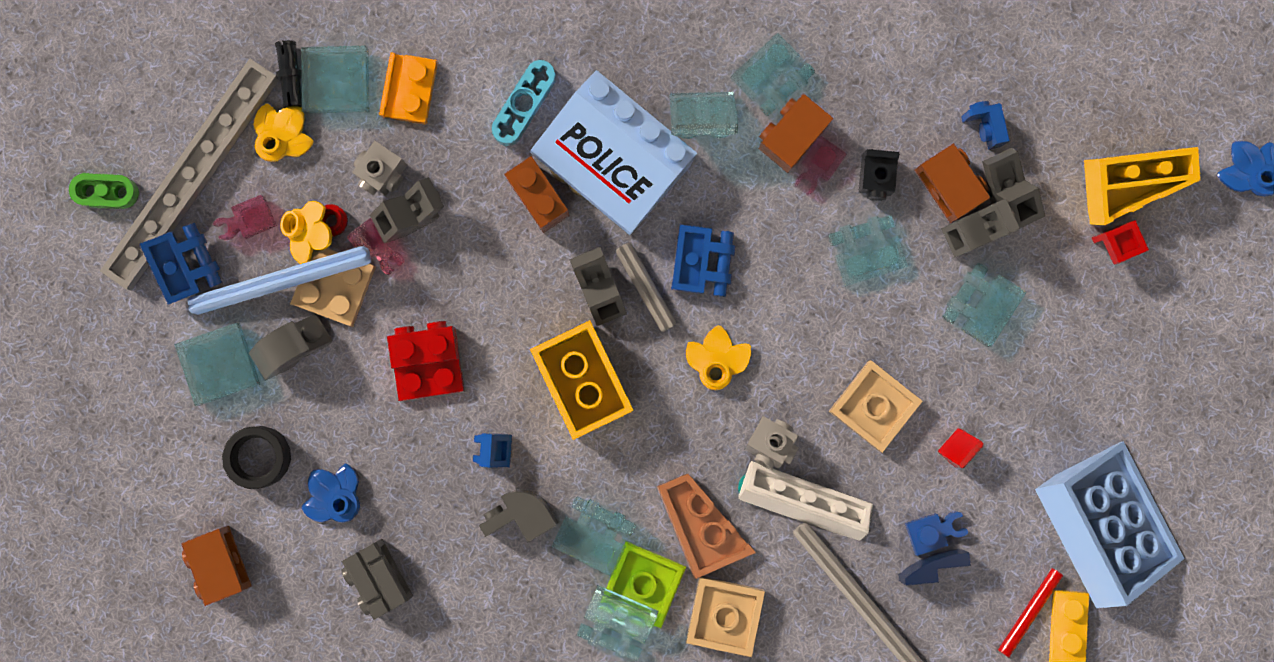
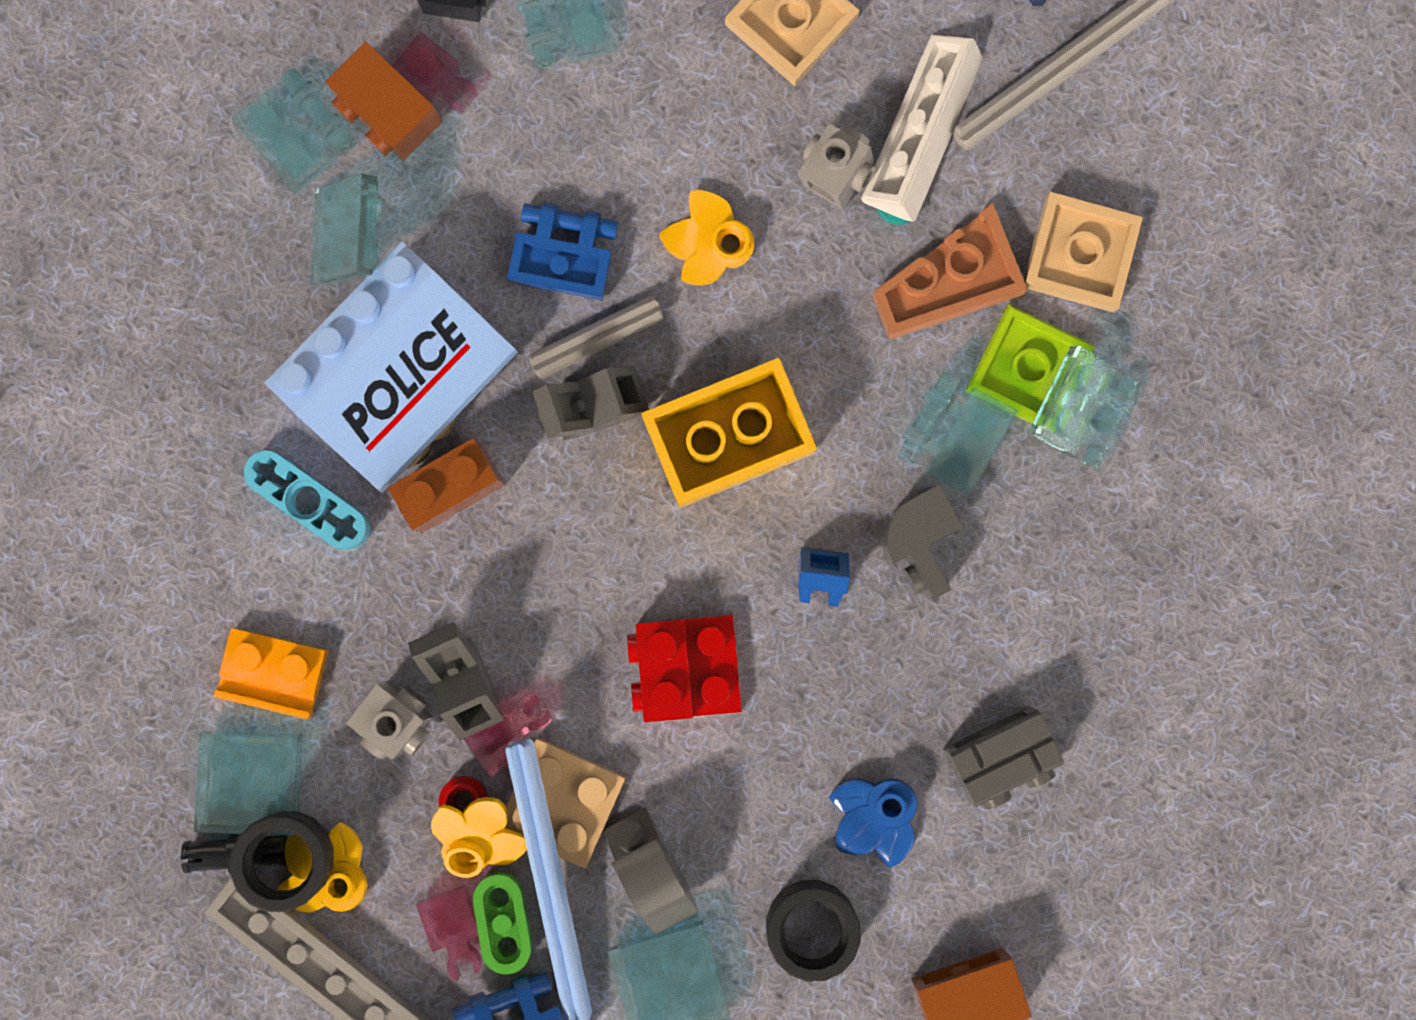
camera: 90 degrees left, 0 degrees up
(253, 252) = (502, 920): none -> bright green plate
(263, 91) = (244, 874): none -> black tyre

